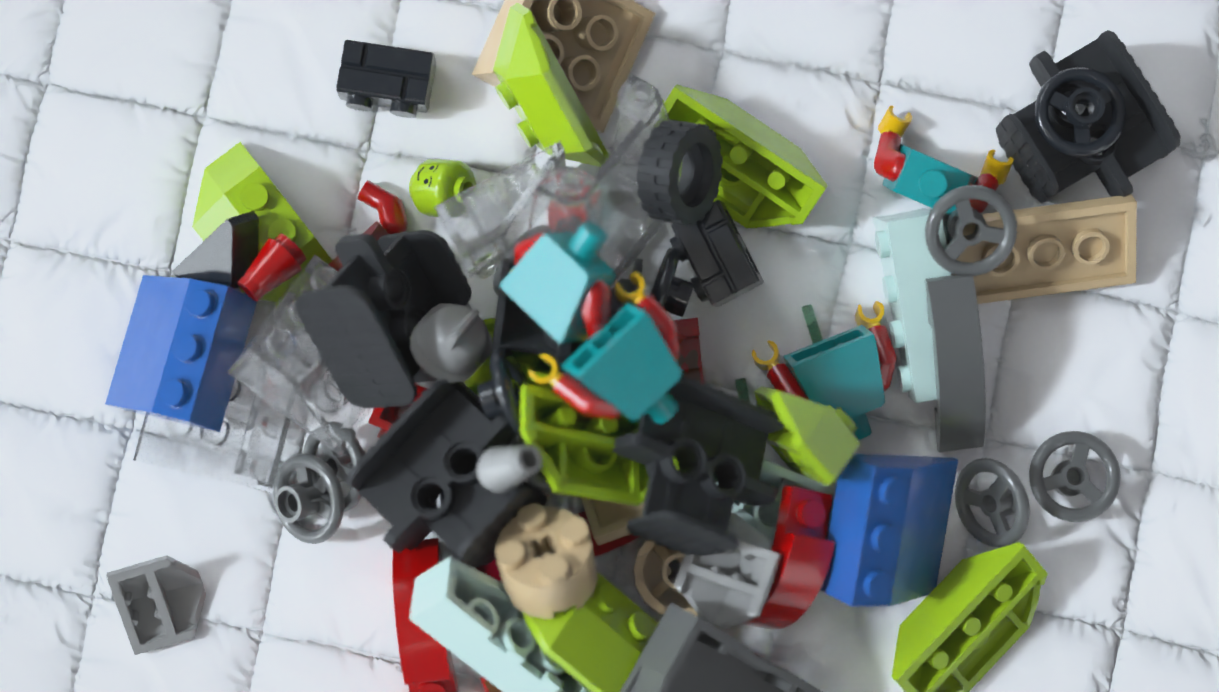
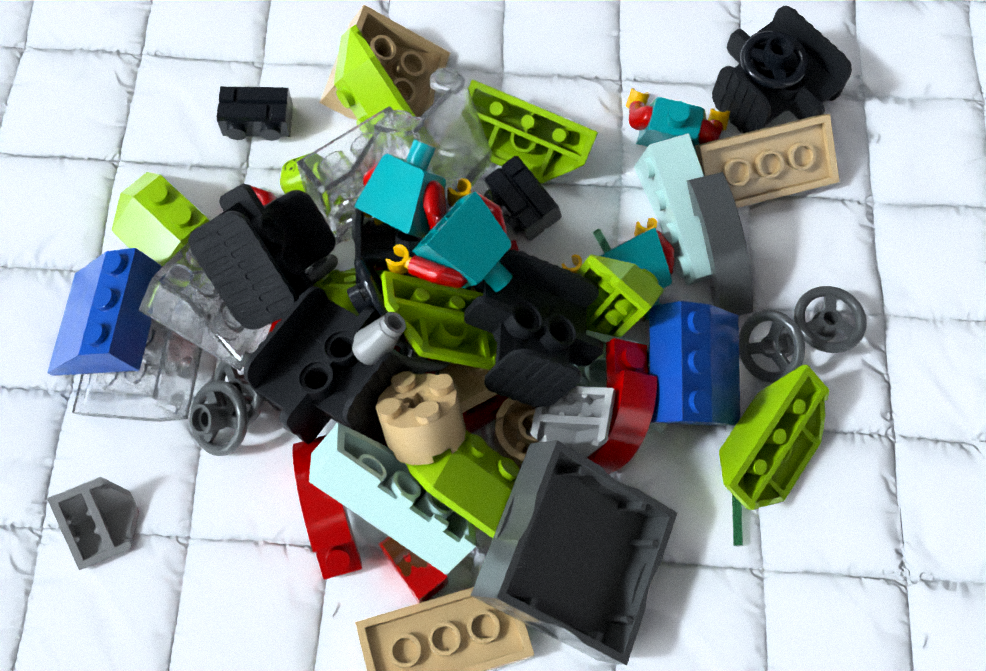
camera: 10 degrees left, 15 degrees down
(224, 253) = (137, 228): black slope -> none
(273, 265) = (171, 235): red cone -> none
(451, 342) = (322, 264): light grey piece -> none
(660, 167) = (485, 130): black tyre -> none
(959, 219) = (701, 143): dark grey piece -> none

